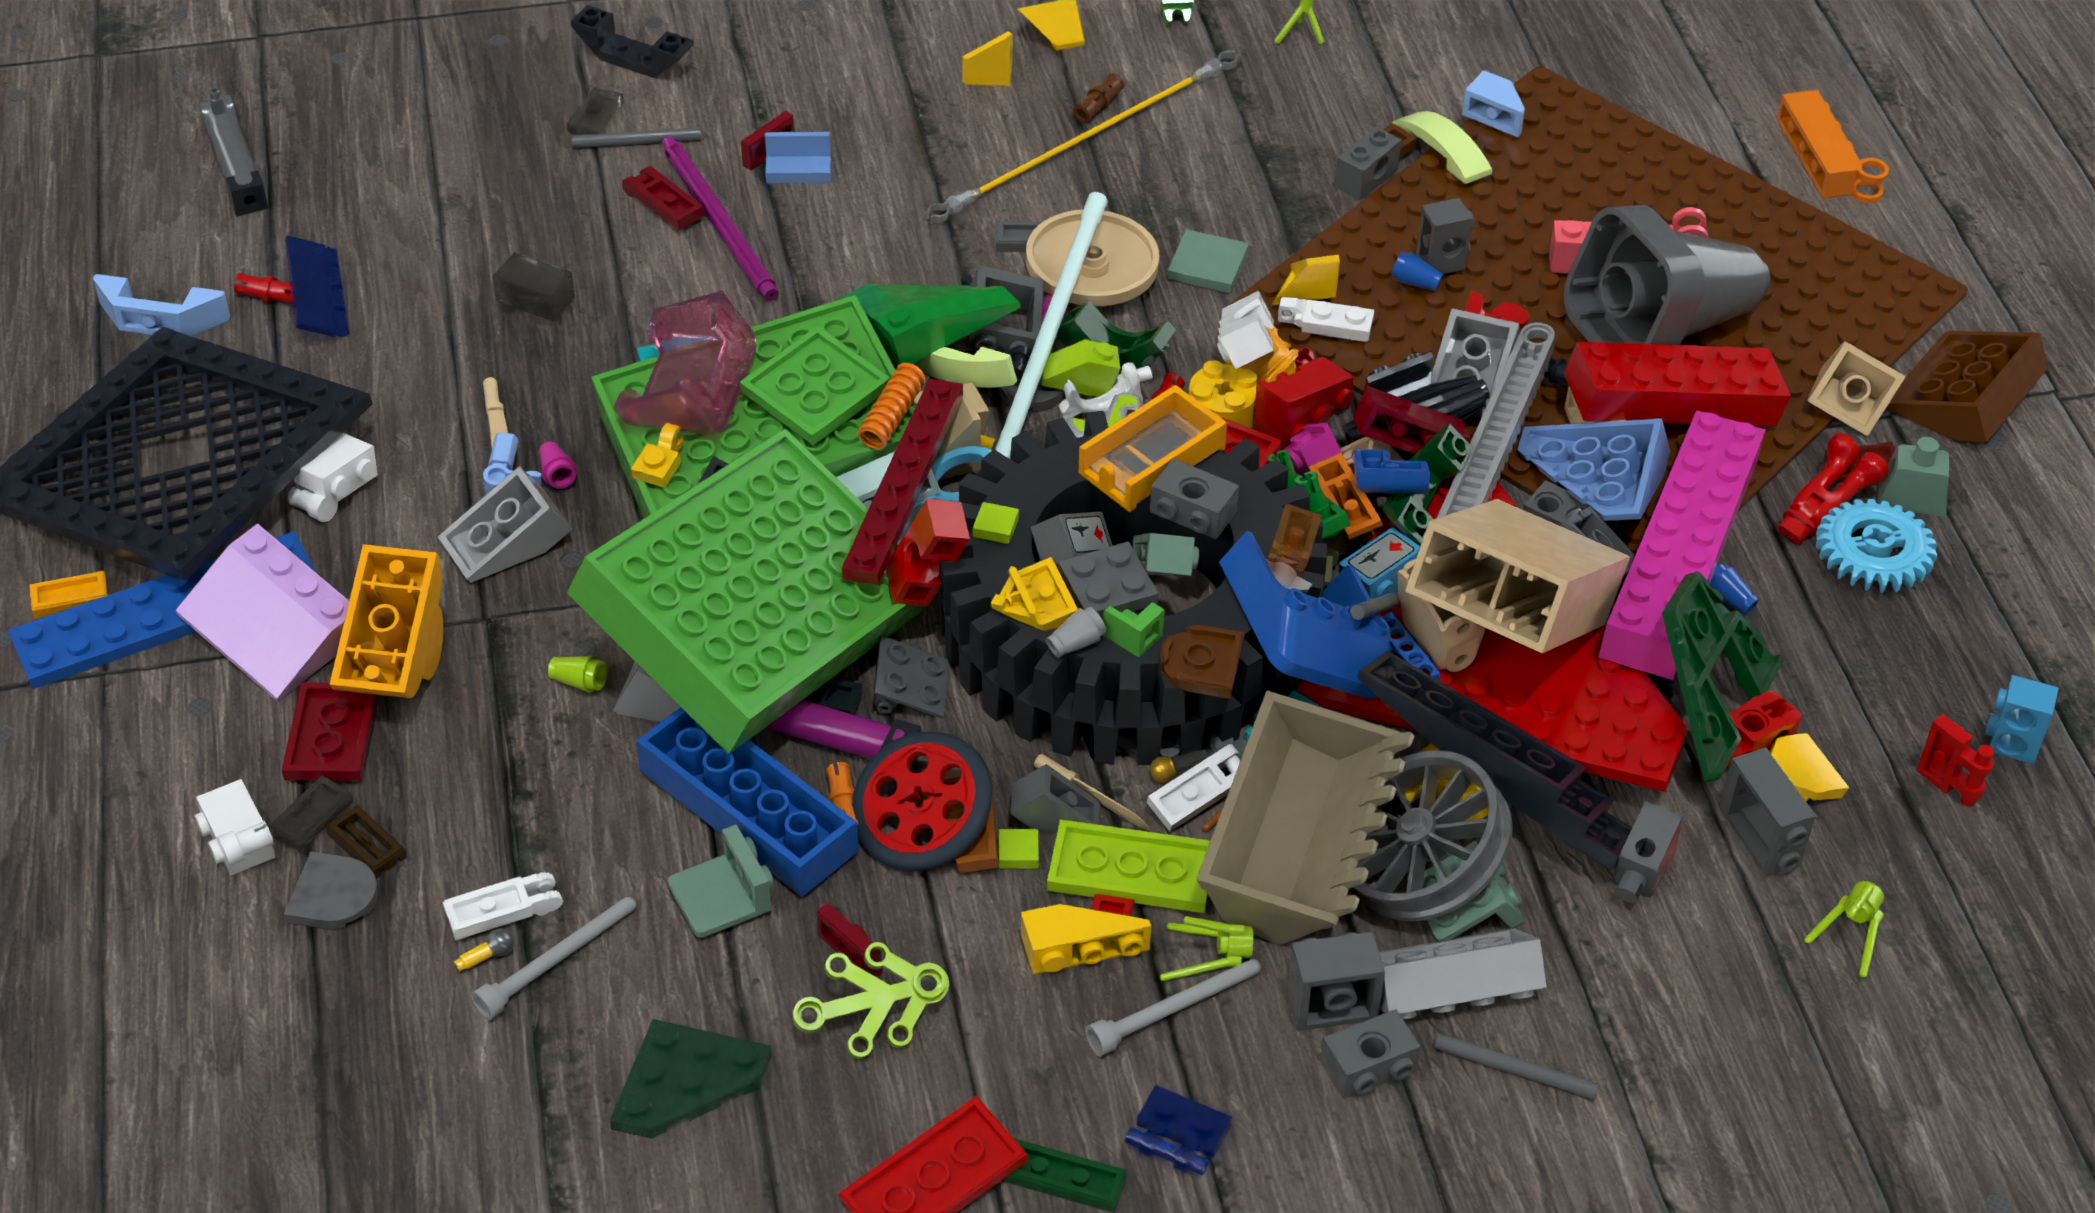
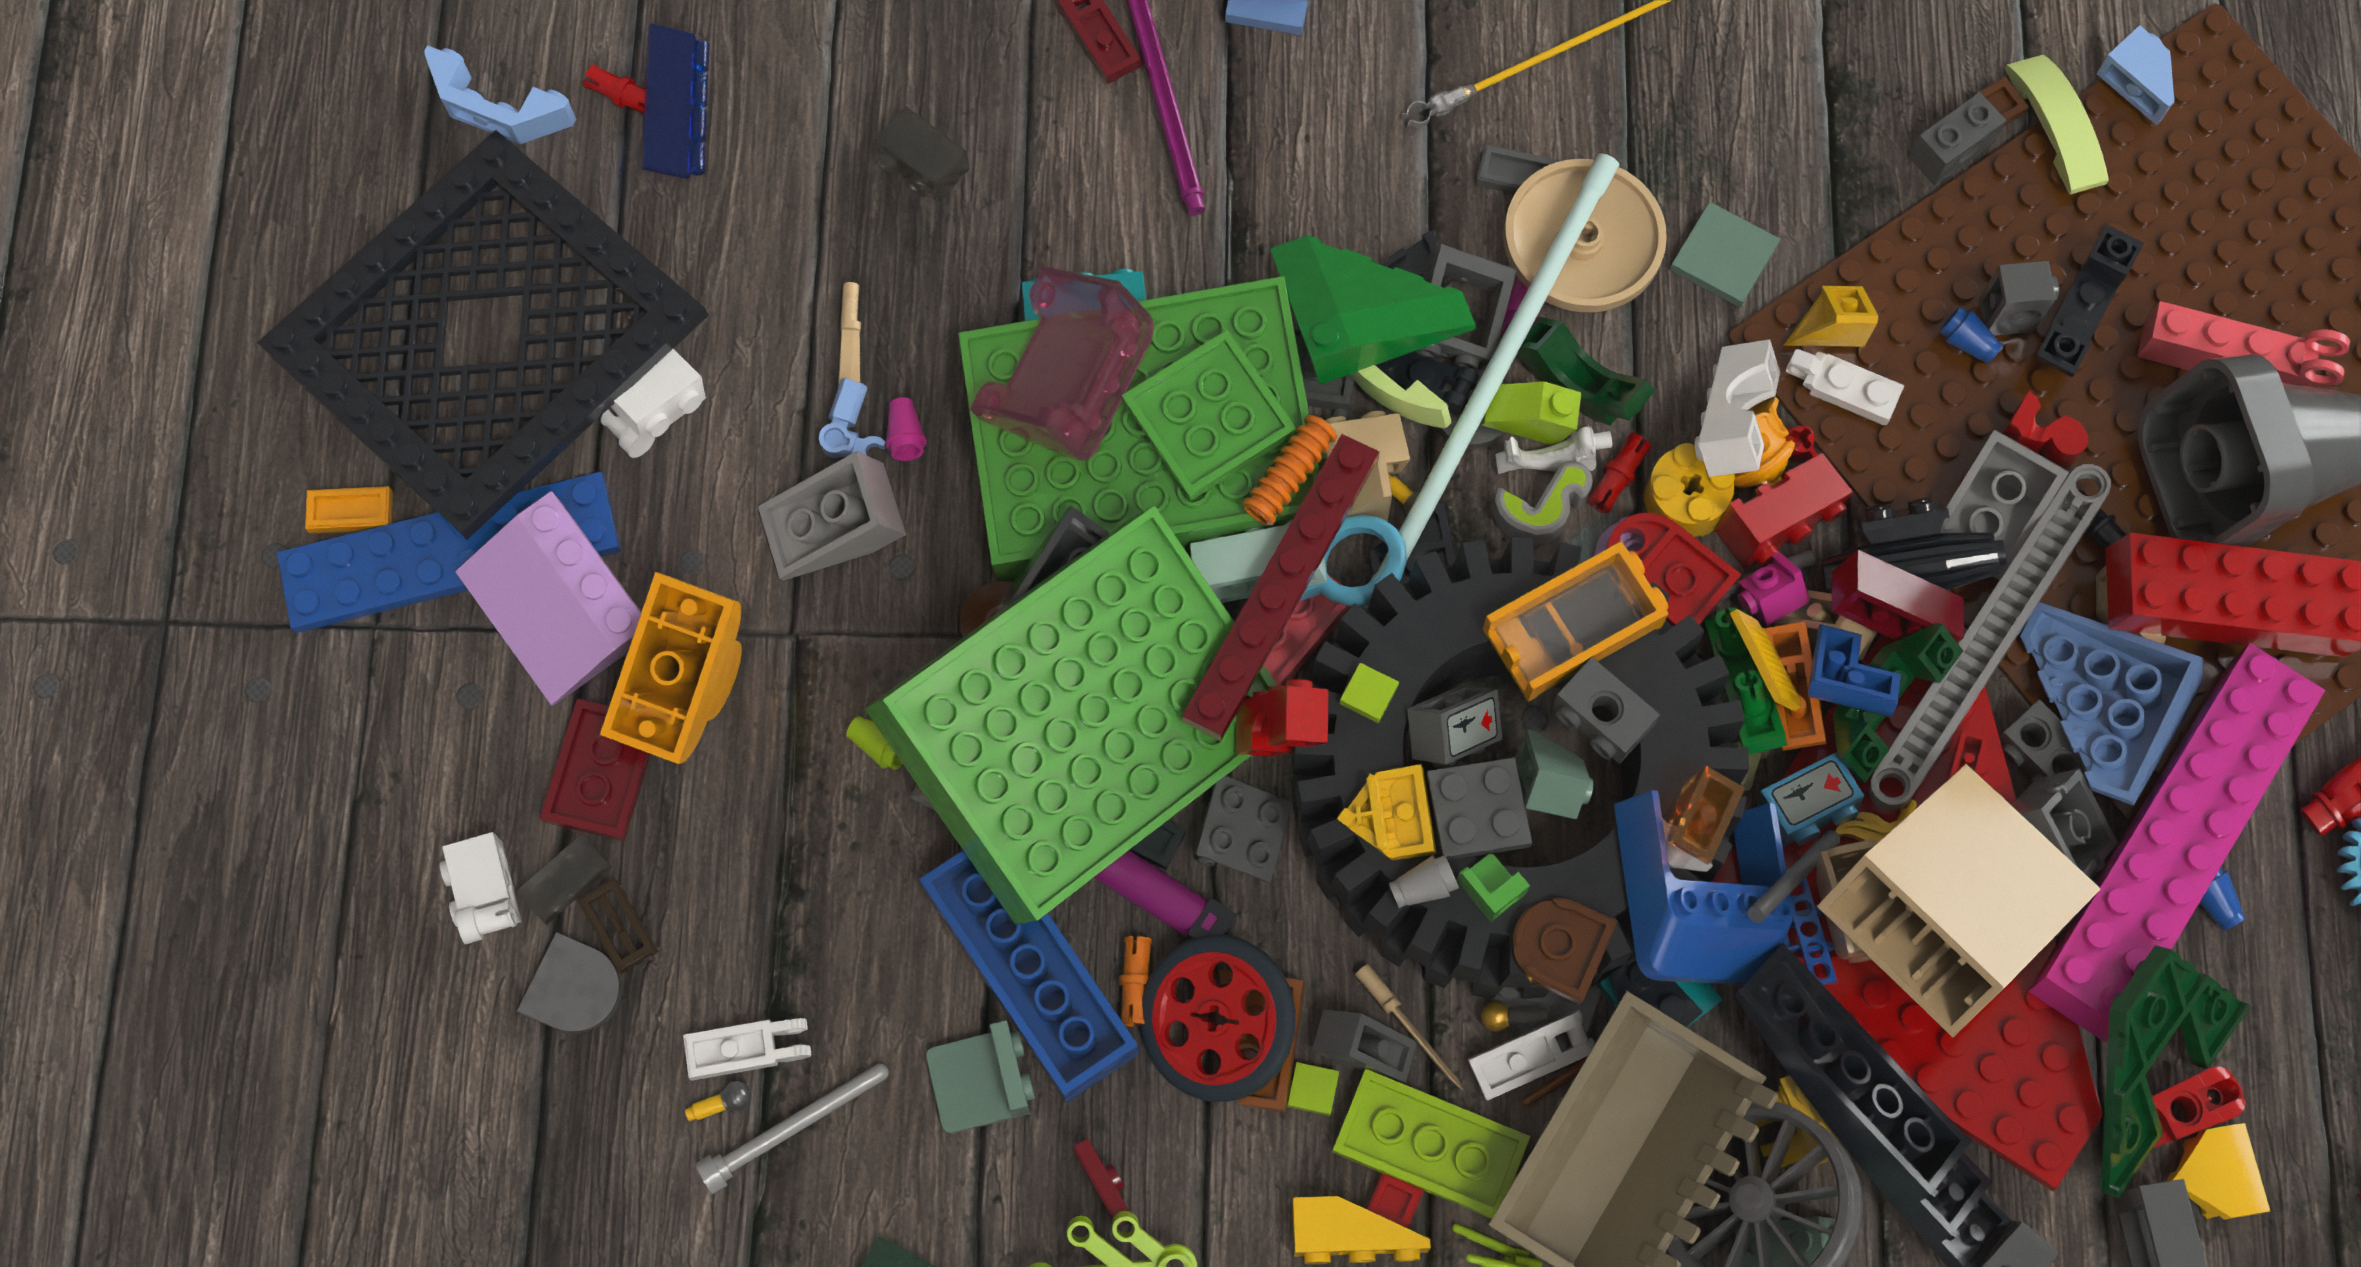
camera: 15 degrees right, 25 degrees up
(659, 462) = (1011, 487): yellow plate -> none
(1323, 475) = (1767, 660): none -> yellow window
(1502, 232) = (2087, 300): none -> black slope

